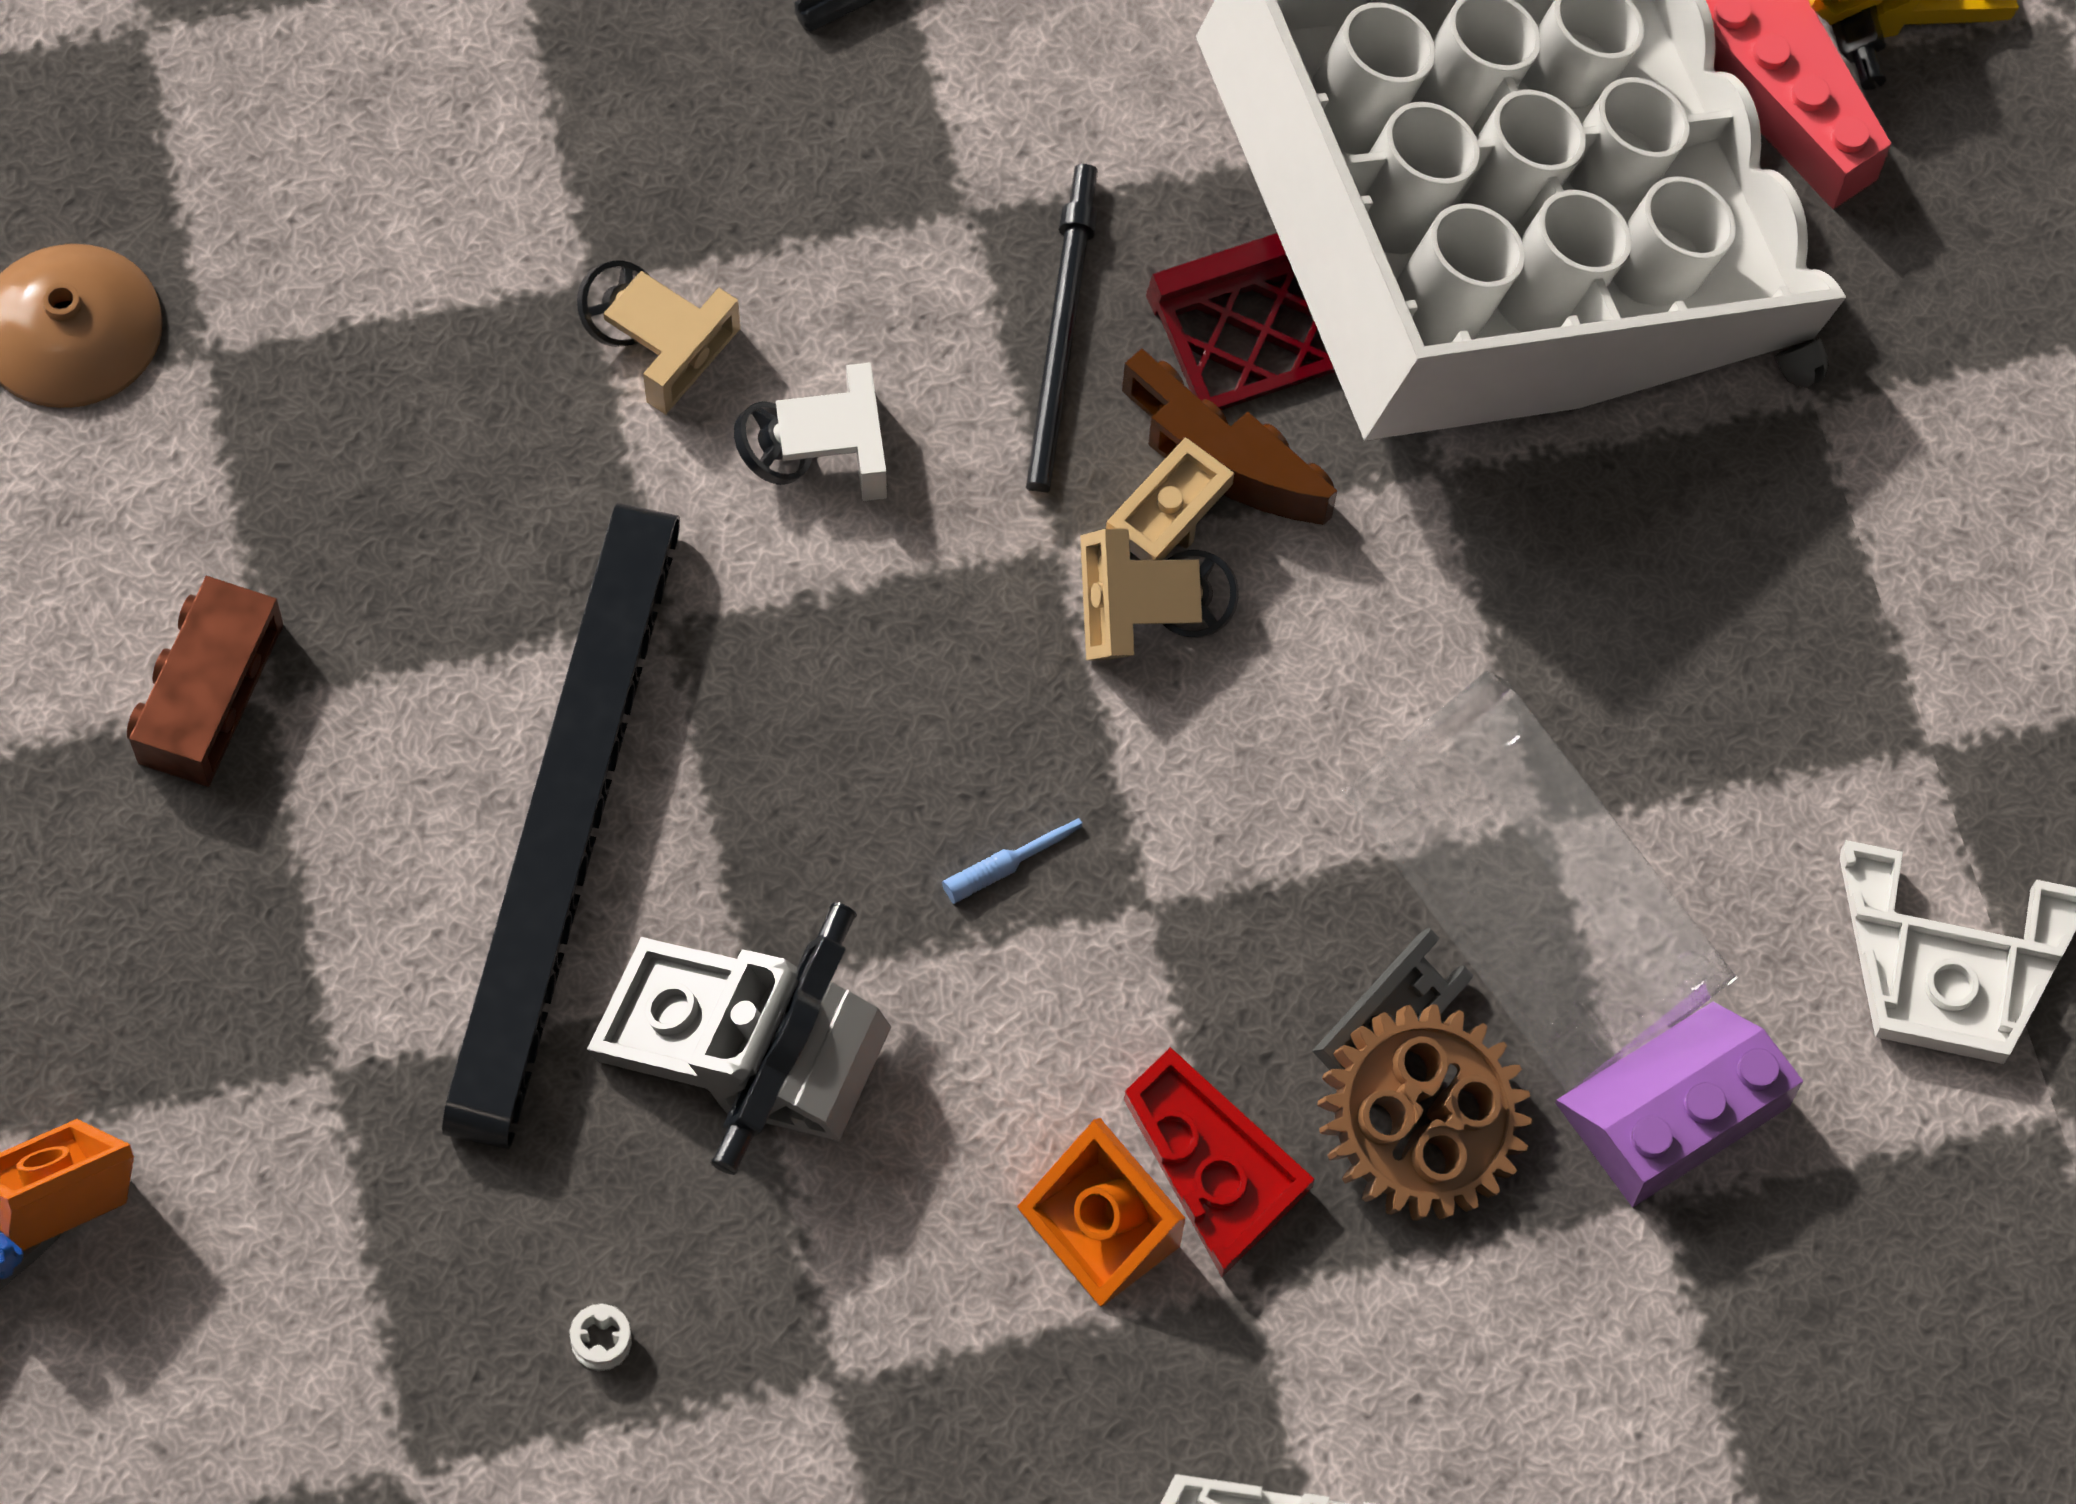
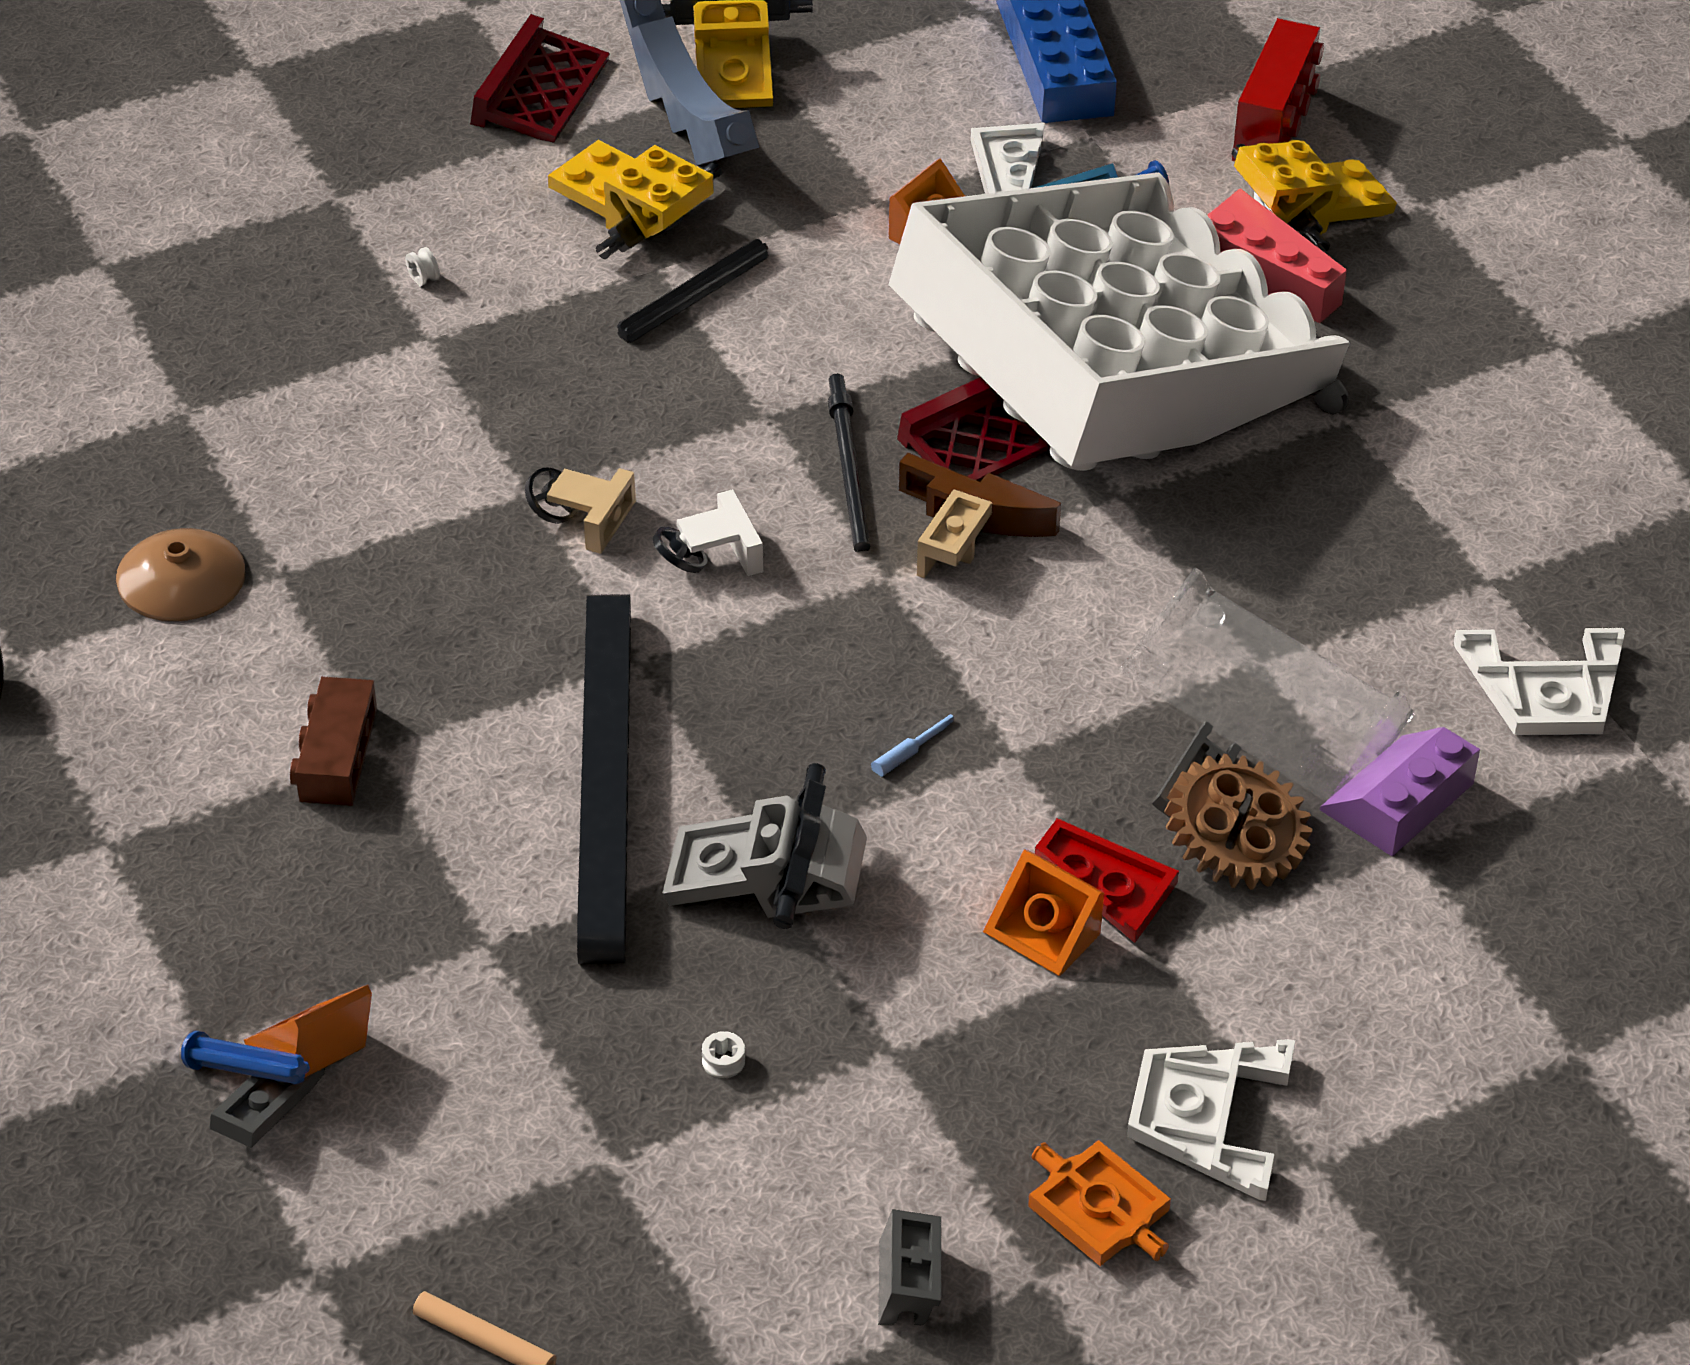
camera: 10 degrees left, 20 degrees down
(1144, 592) = (941, 577): tan piece -> none

